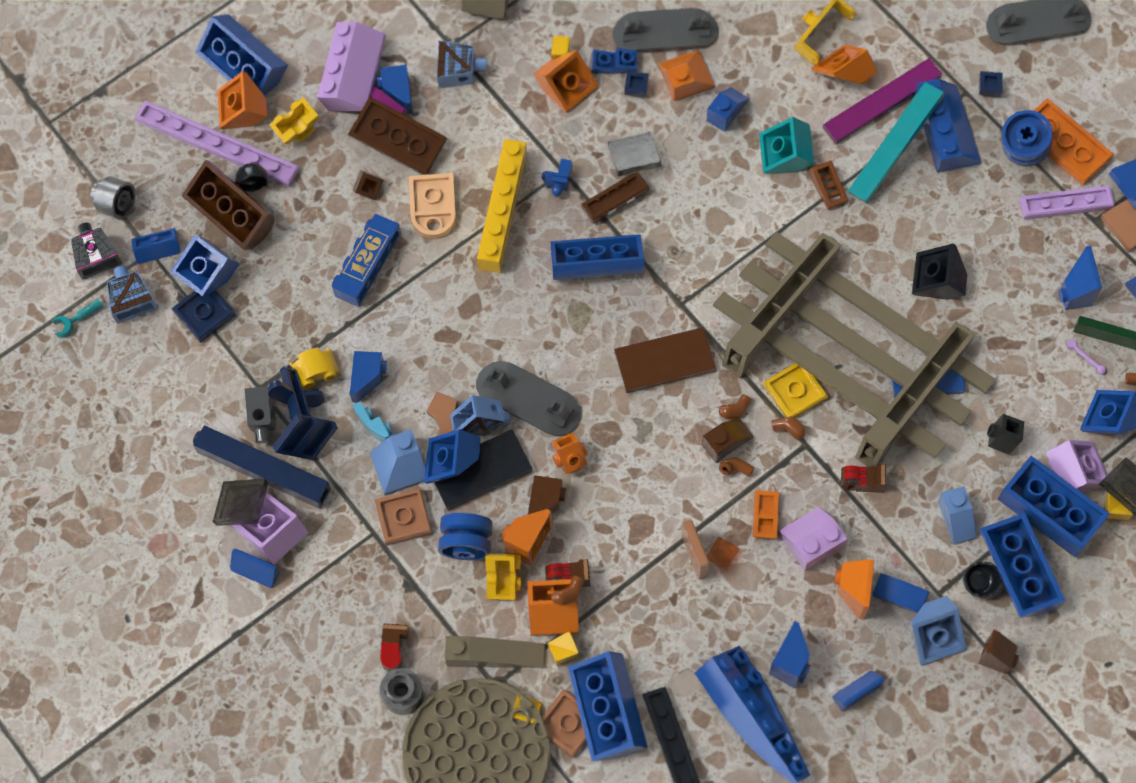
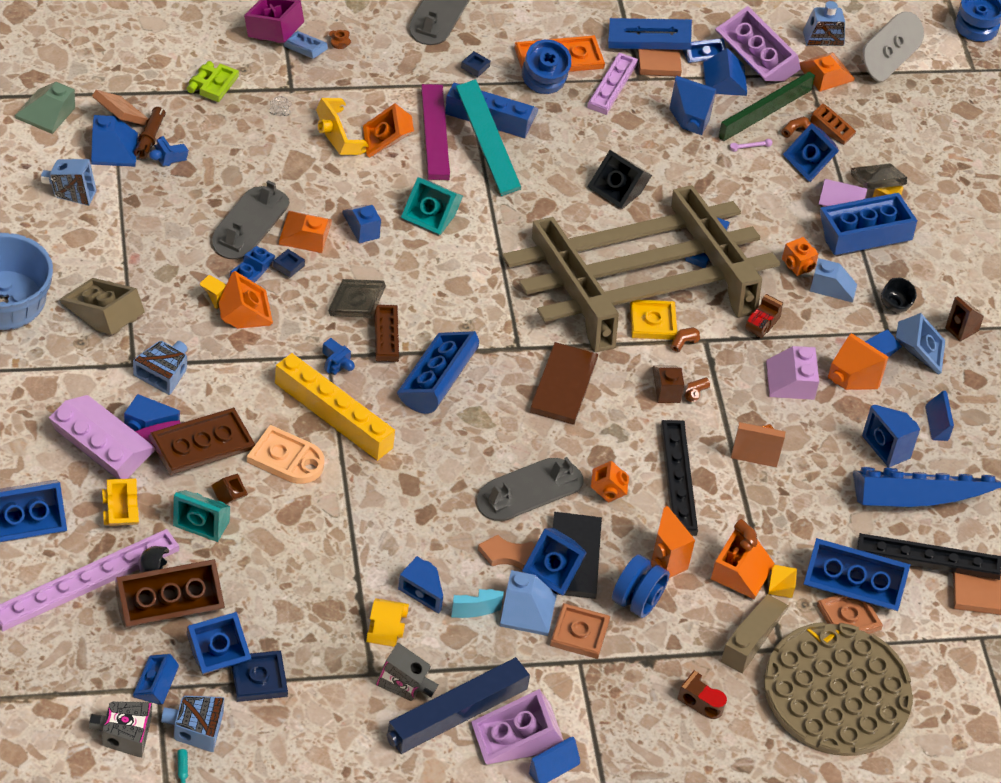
camera: 70 degrees left, 20 degrees down
(113, 197) = (80, 680): flat silver piece -> none
(240, 103) = (61, 536): orange slope -> none
(240, 502) = (485, 735): clear smoke tile -> none
(304, 434) = (456, 645): dark blue piece -> none
(324, 178) = (200, 515): none -> teal slope
(366, 259) = (308, 526): blue brick -> none
(401, 678) = (750, 710): flat silver piece -> none
(479, 416) = (531, 519): medium blue torso -> none
(502, 576) = (689, 586): yellow cylinder -> none
(546, 494) = (637, 523): reddish brown slope -> none
(567, 570) = (718, 538): leg -> none
(625, 505) = (679, 473): none -> black tile
(735, 411) = (645, 361): dark orange arm -> none
(765, 514) = (745, 392): orange slope -> none
(833, 176) = (477, 200): dark orange slope -> none
(963, 470) = (800, 256): none -> orange brick
(1005, 433) = (788, 216): pearl dark grey brick -> none
(1023, 566) = (906, 261): blue slope -> none

